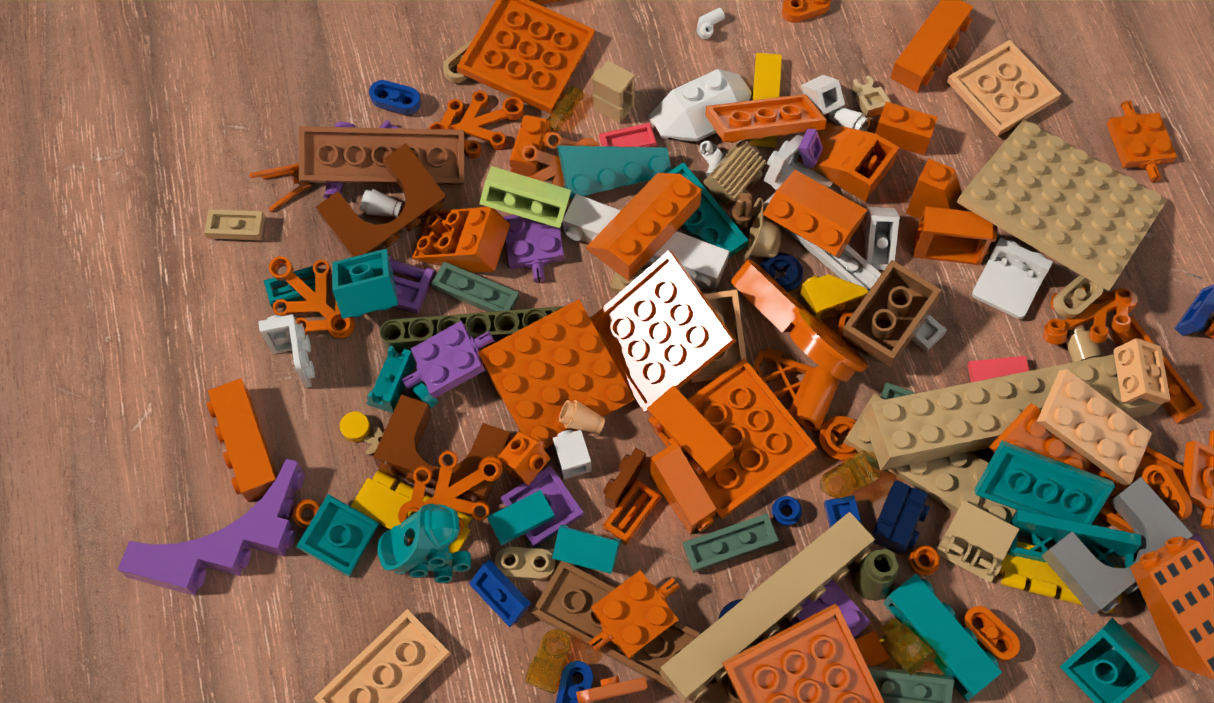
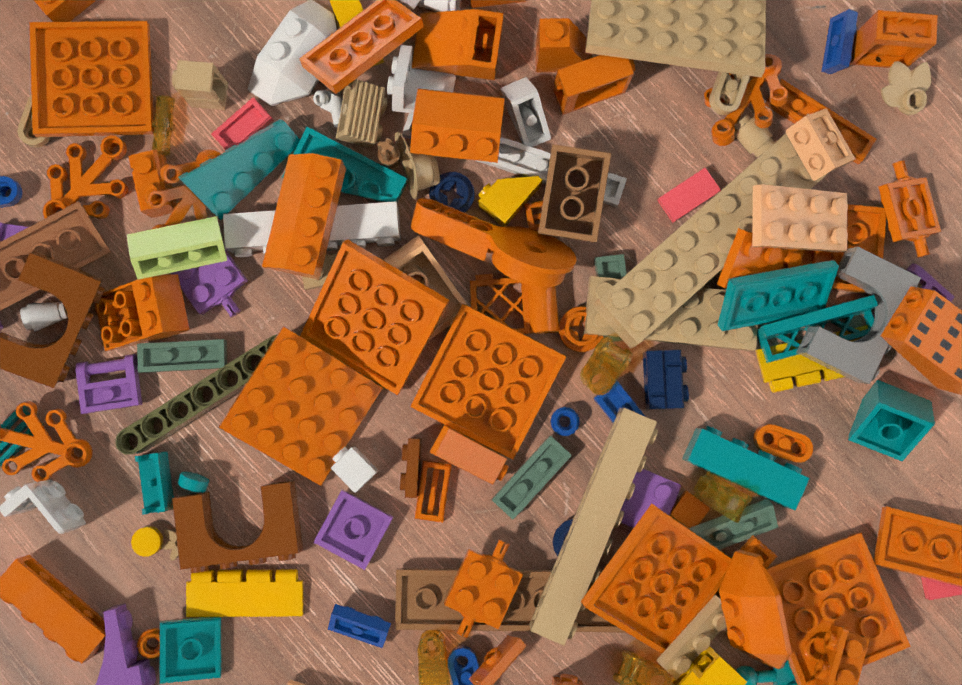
camera: 30 degrees left, 20 degrees up
(364, 284) = (74, 410): teal slope -> none
(433, 530) = (276, 628): teal piece -> none
(447, 359) = (195, 445): medium lavender plate -> none
(447, 494) = (268, 570): orange plant -> none
(521, 517) = (341, 554): teal tile -> none
(524, 457) = (314, 499): orange brick -> none
(524, 563) = (365, 585): tan plate -> none
(579, 417) = (344, 436): light nougat cone -> none
(586, 549) = (413, 554): teal hinge -> none
(691, 431) = (448, 402): orange brick -> none
(810, 148) = (419, 53): medium lavender tile -> none
(872, 583) = (659, 449): olive plant -> none
(927, 552) = (709, 404): orange plate -> none
(977, 541) = (738, 367): tan hinge -> none
(1011, 278) = (660, 97): white bracket -> none
(1170, 490) = (880, 241): orange plate -> none

